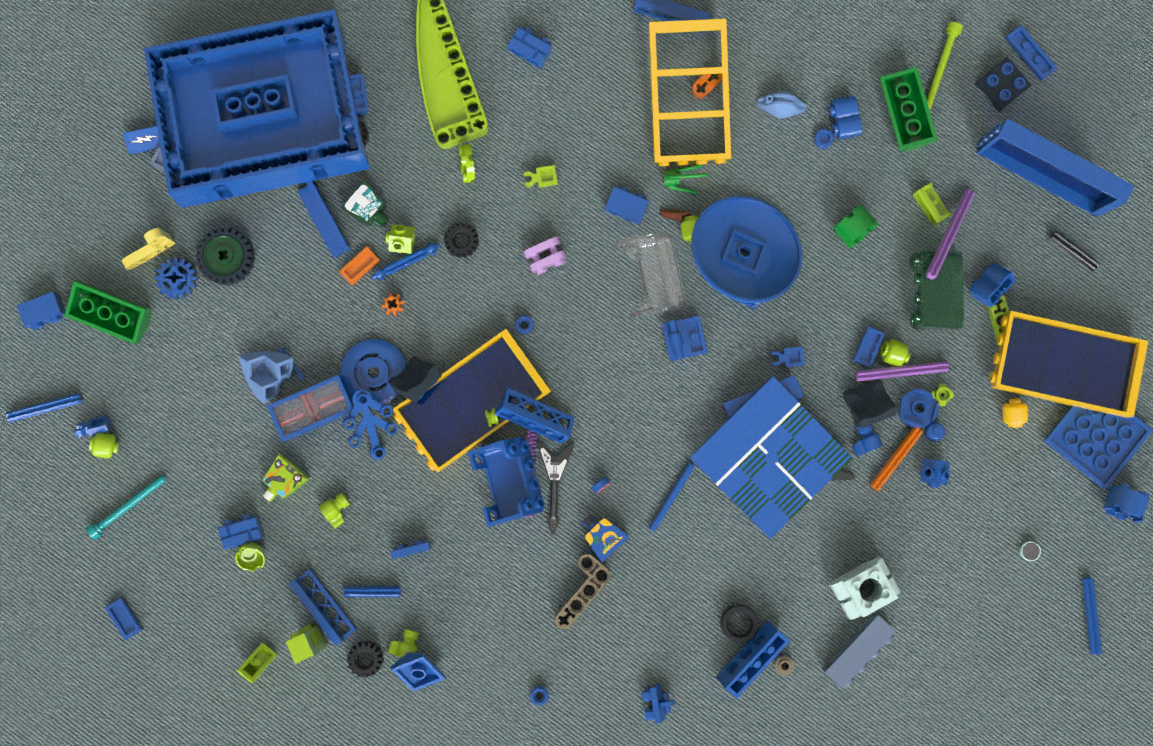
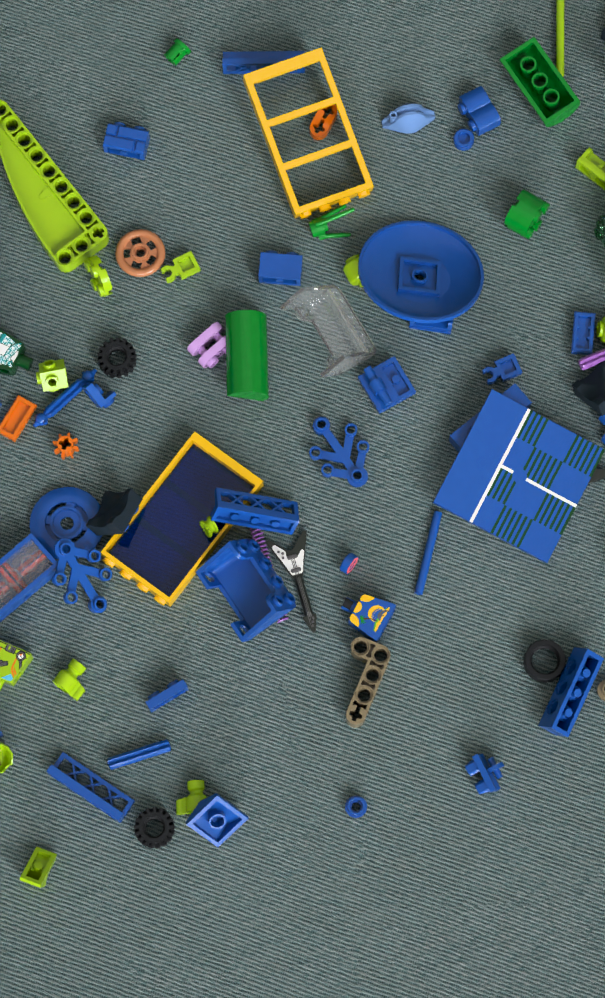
camera: 15 degrees left, 10 degrees down
(306, 643) = (86, 820): lime brick -> none
(432, 266) = (95, 394): none -> blue bracket
(511, 168) = (126, 244): none -> nougat plate
(524, 318) = (212, 418): blue plate -> none
(572, 275) = (247, 355): none -> green brick
(626, 387) = (341, 455): none -> blue plant
(675, 214) = (333, 262): copper bar -> none

